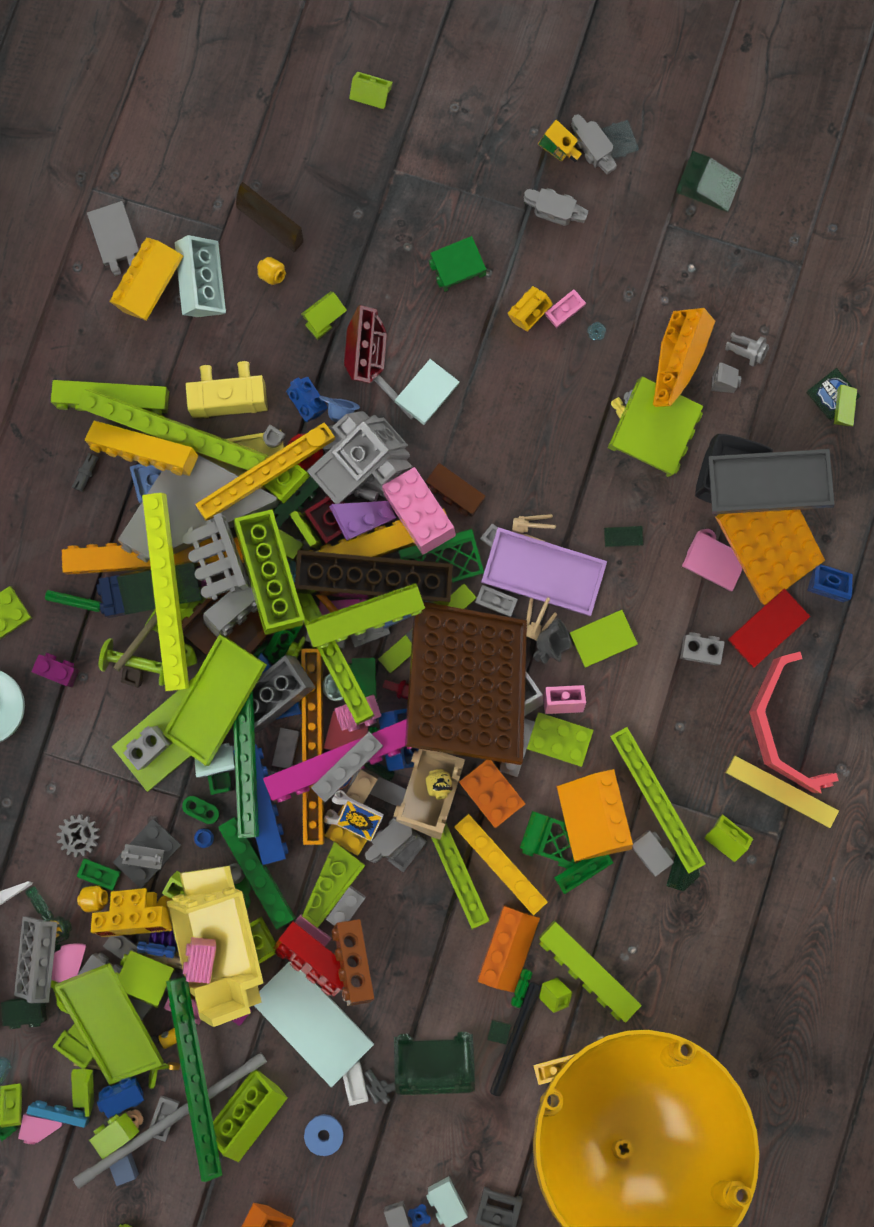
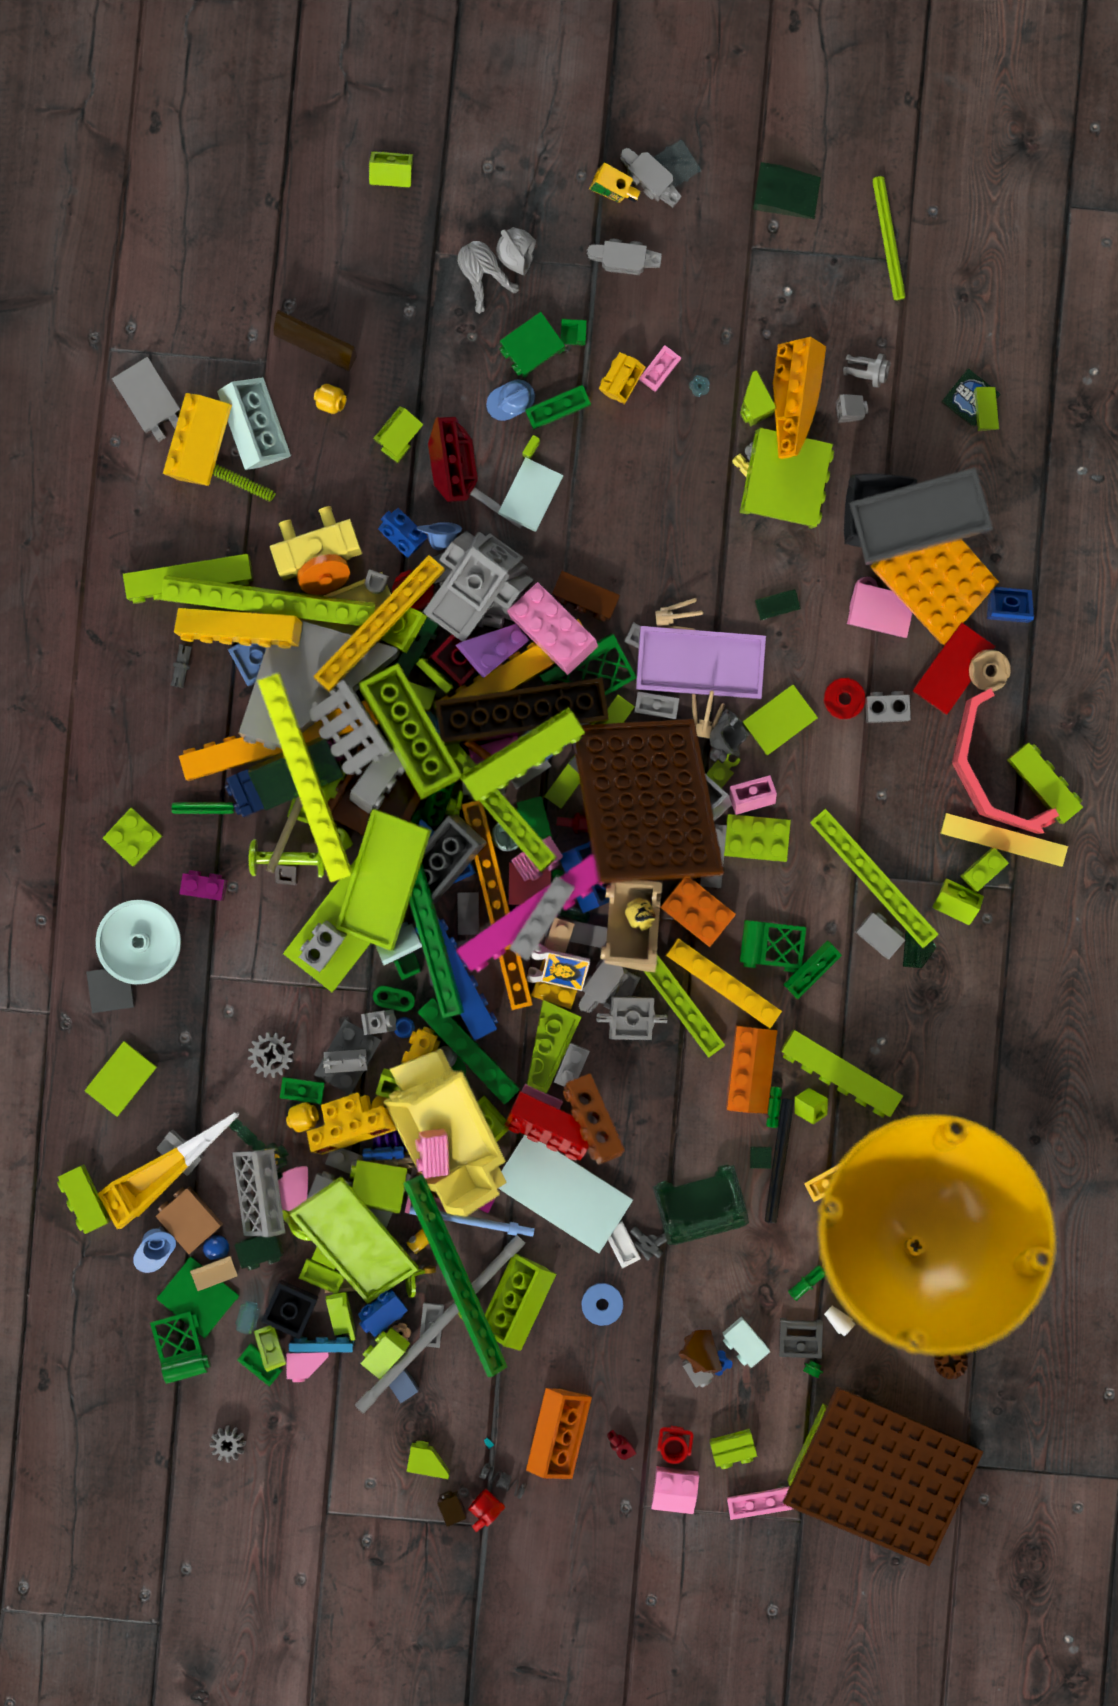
camera: 15 degrees left, 5 degrees up
(37, 1073) = (290, 1309): none -> black brick
(167, 316) = (243, 487): none -> lime piece
(181, 828) = (378, 1022): none -> light grey brick
(216, 856) = (423, 1043): none -> yellow brick
(228, 419) = (323, 574): none -> orange wheel
(257, 1045) = (511, 1228): none -> light blue bar
(316, 437) = (424, 574): yellow piece -> none
(403, 1203) = (701, 1352): none -> reddish brown slope
(410, 876) = (631, 1018): none -> light grey plate
(422, 182) = (479, 259): none -> light grey hair
(428, 307) = (510, 400): none -> medium blue piece
(436, 351) = (531, 447): none -> lime tile
(462, 179) = (516, 250): none -> light grey helmet
(468, 322) = (557, 407): none -> green plate
(497, 260) = (573, 331): none -> green panel
(515, 1159) = (807, 1282): none -> green axle
(537, 1202) = (839, 1320): none -> white cone
(540, 673) = (720, 772): none -> lime plate
(594, 816) = (811, 910): light orange slope -> none
(644, 355) = (757, 401): none -> lime slope
(665, 621) = (856, 694): none -> red tile
(759, 814) = (984, 869): none -> lime brick
(789, 242) = (888, 238): none -> lime axle
(791, 631) = (978, 667): none -> tan tile
(830, 748) = (1044, 782): none -> lime brick

